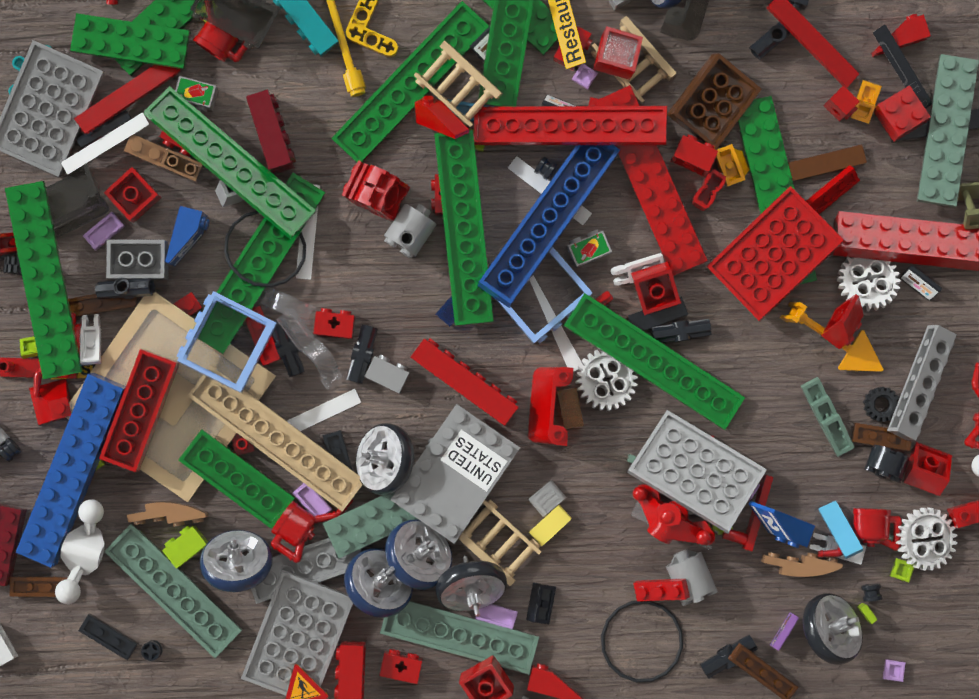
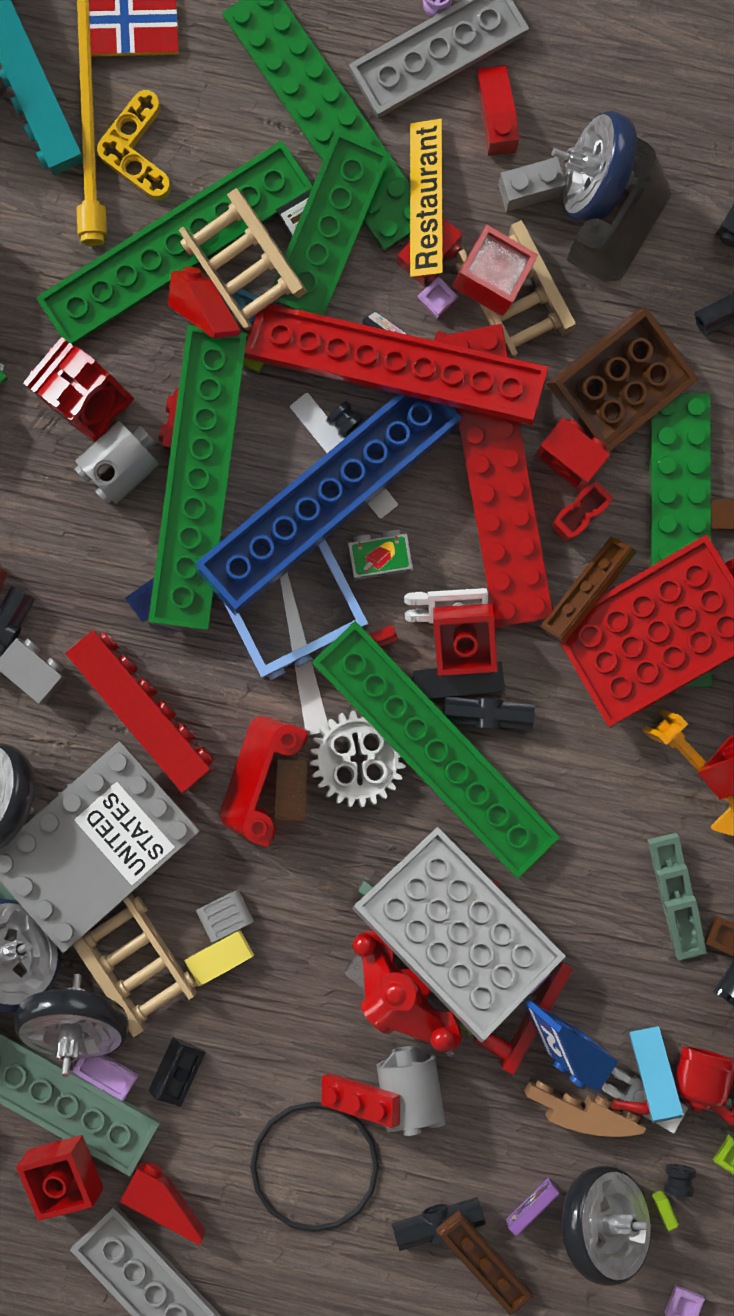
camera: 15 degrees right, 0 degrees up
(724, 238) = (587, 589): none -> reddish brown tile
(732, 164) = (626, 482): light orange slope -> none

